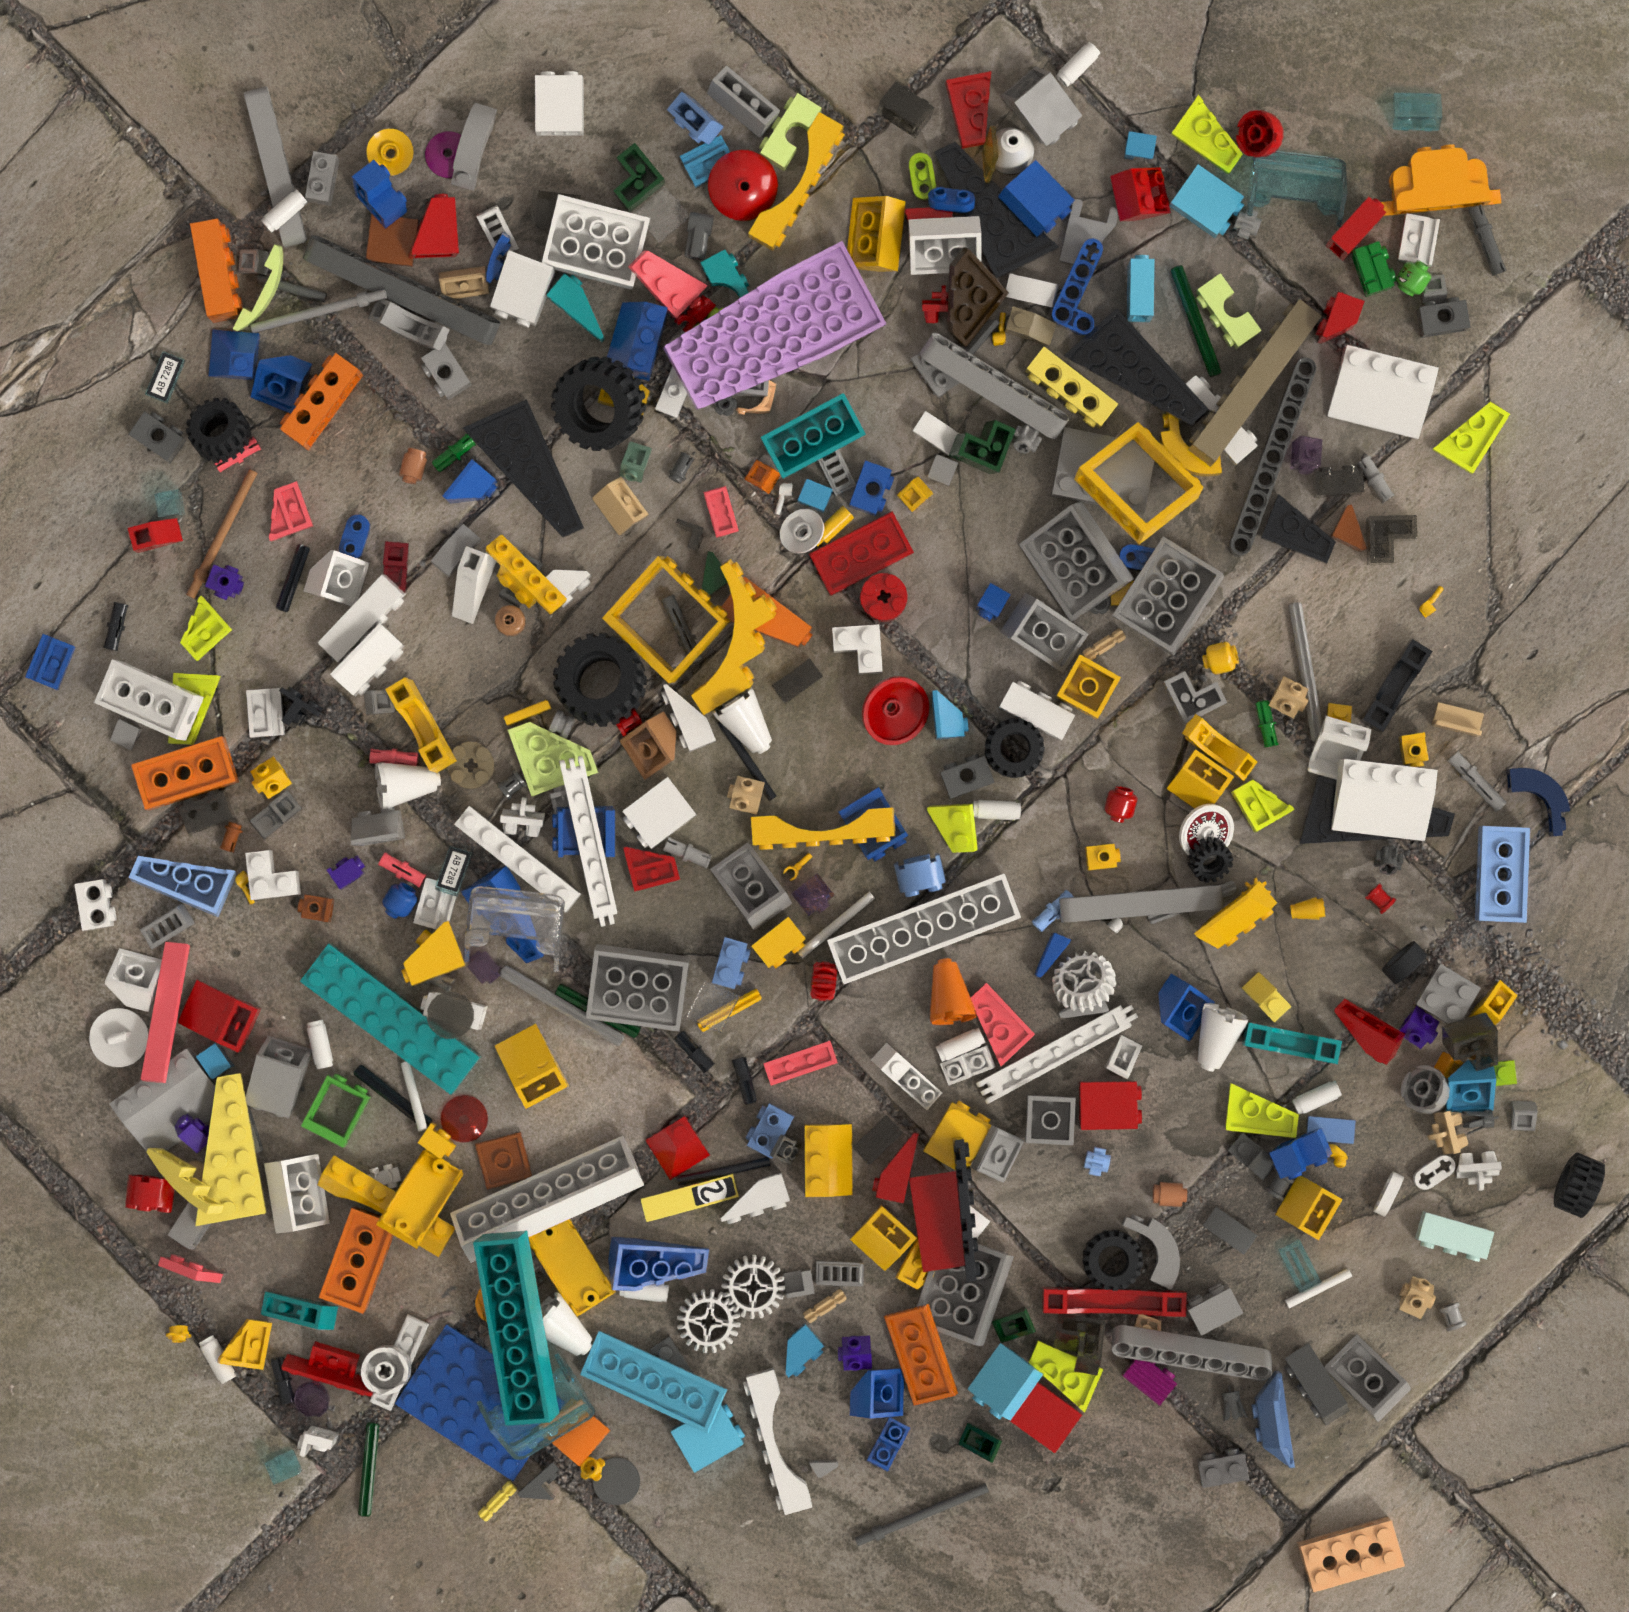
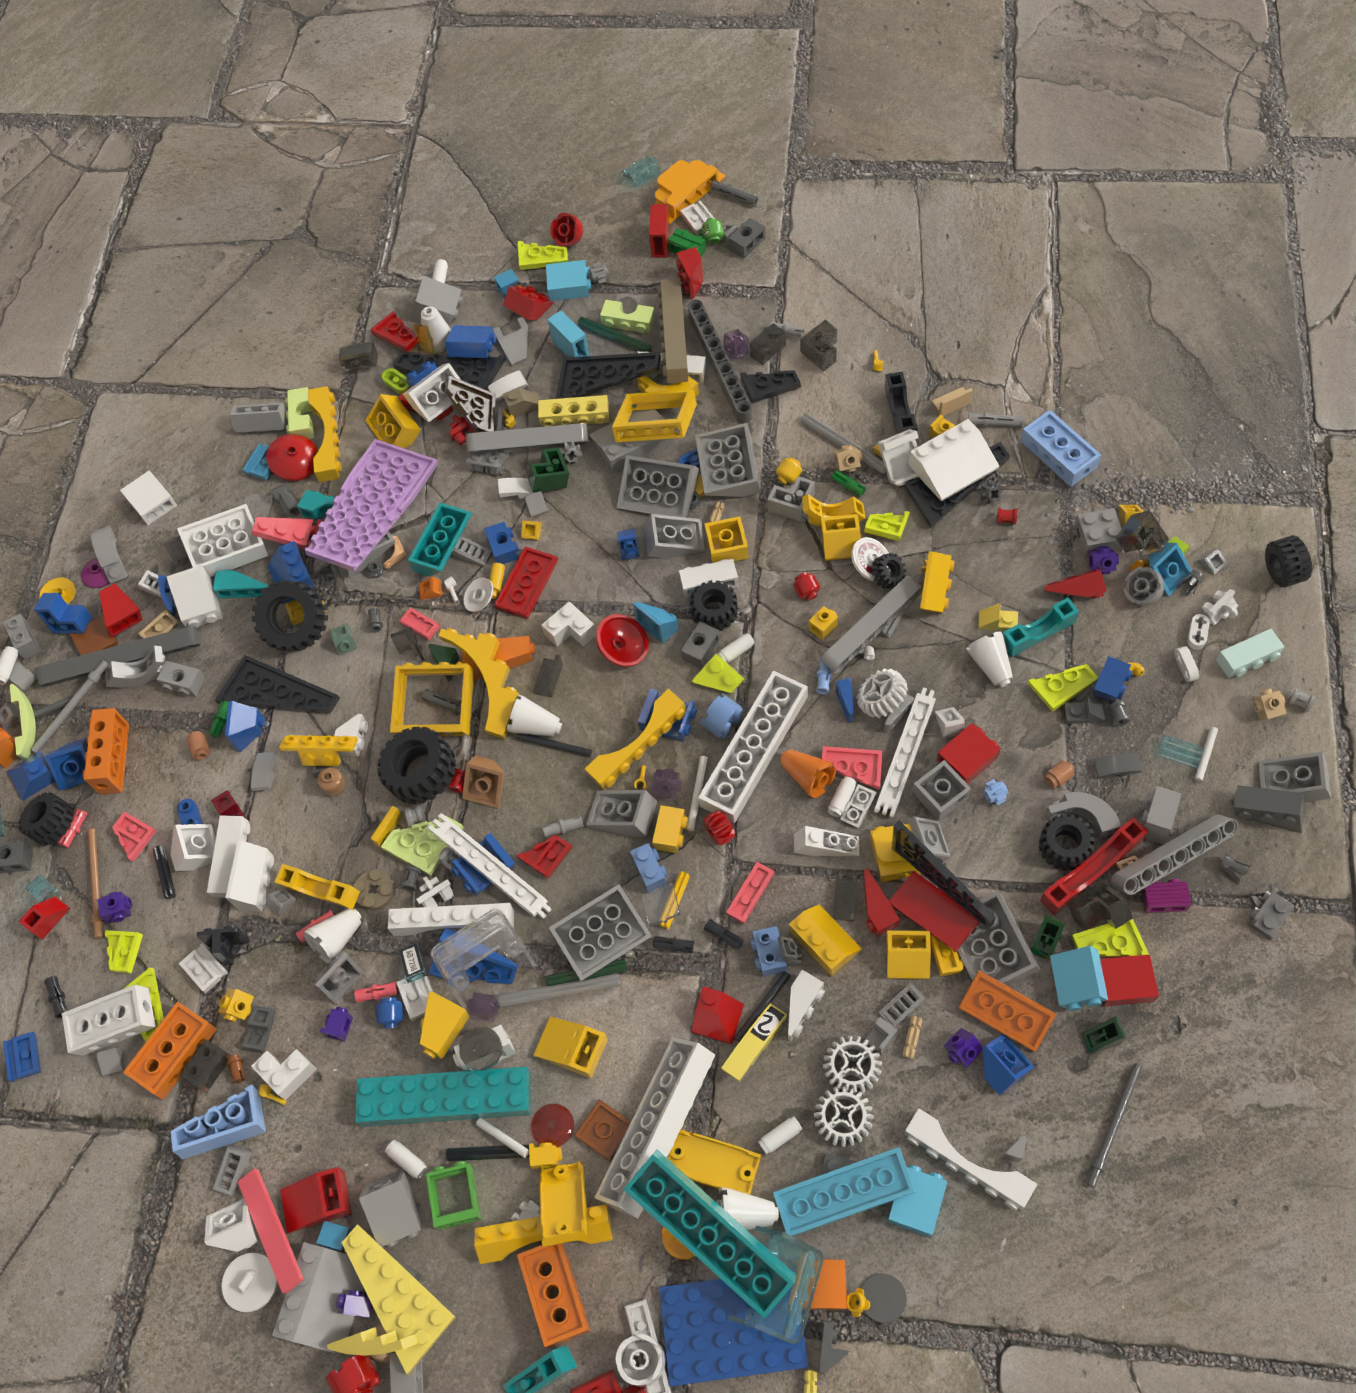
camera: 35 degrees left, 25 degrees down
(88, 906) = (161, 1202): white brick -> none
(294, 1193) = (468, 1285): white slope -> none
(325, 908) = (340, 1066): dark orange brick -> none
(471, 583) = (287, 778): white slope -> none
(619, 505) = (351, 669): tan panel -> none
(642, 180) = (223, 492): dark green brick -> none
(648, 1262) = (764, 1113): blue wedge -> none
(658, 813) = (523, 817): white brick -> none
(672, 396) = (338, 586): white plate -> none
(694, 725) = (502, 749): white slope -> none
(695, 118) = (235, 442): medium blue brick -> none
(746, 794) = (570, 760): tan brick -> none
(800, 1348) = (923, 1078): dark azure slope -> none
(815, 495) = (469, 571): dark azure panel -> none
(888, 1444) = (1044, 1095): blue slope -> none
(891, 586) = (559, 588): red brick -> none
(1081, 284) = (542, 378): blue beam -> none
(1181, 1006) = (954, 660): blue slope -> none
(1273, 1420) = (1270, 854): medium blue wedge -> none
(1300, 179) = (611, 236): clear light blue windscreen -> none
(1308, 909) = (973, 553): yellow cone -> none
(1308, 1207) = (1150, 708): yellow slope -> none
(1316, 1097) = (1086, 647): white piece -> none
(1334, 1129) = (1120, 652): medium blue tile -> none
(1348, 530) = (798, 360): dark orange slope -> none
(1382, 391) = (747, 289): white slope -> none
(1404, 962) = (1056, 532): black tyre -> none
(1445, 1133) = (1181, 602): tan hips -> none
(1473, 438) = (819, 275): neon yellow wing -> none
(1546, 789) = (1037, 394): dark blue arch -> none

